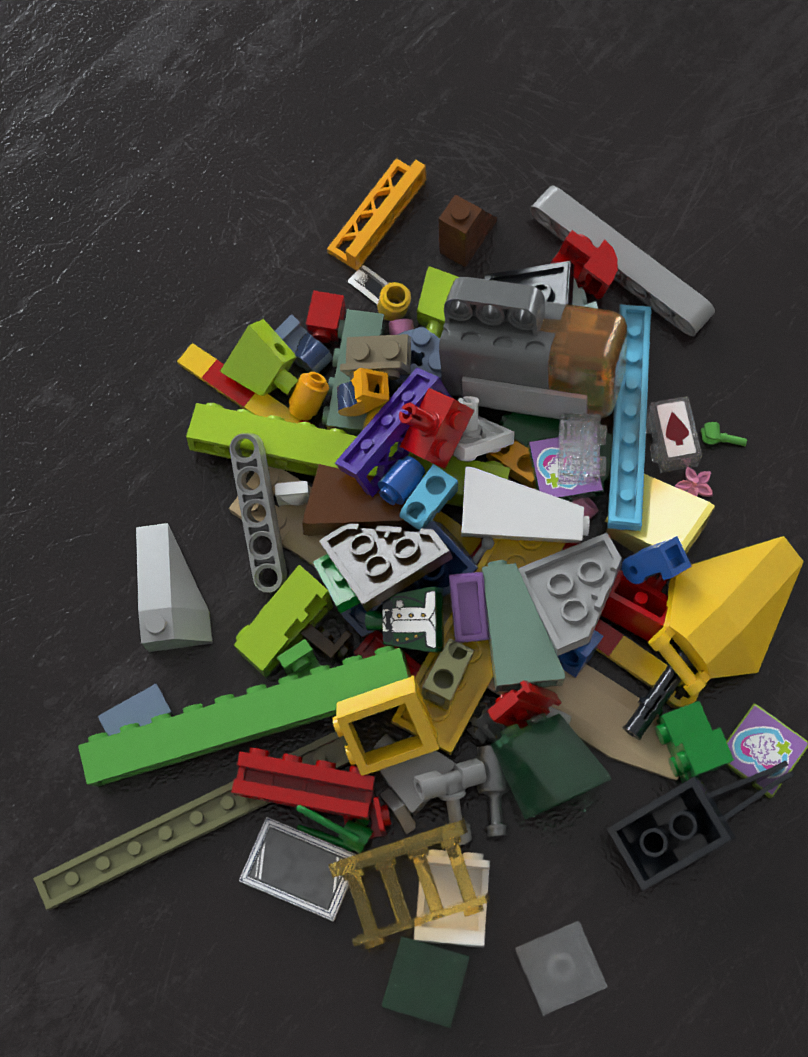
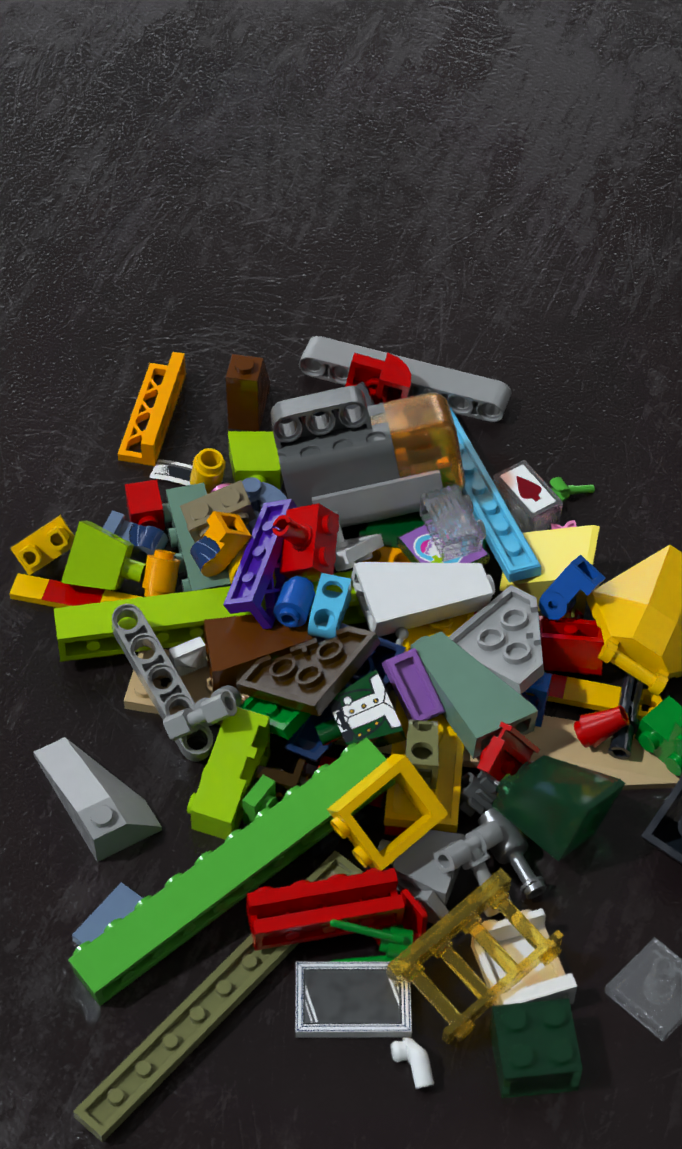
camera: 30 degrees left, 20 degrees down
(219, 327) = (44, 545): none -> yellow hips
(281, 565) = (205, 712): none -> light grey bar
(327, 948) = (417, 1058): none -> white arm
(621, 704) = (599, 726): none -> red cone

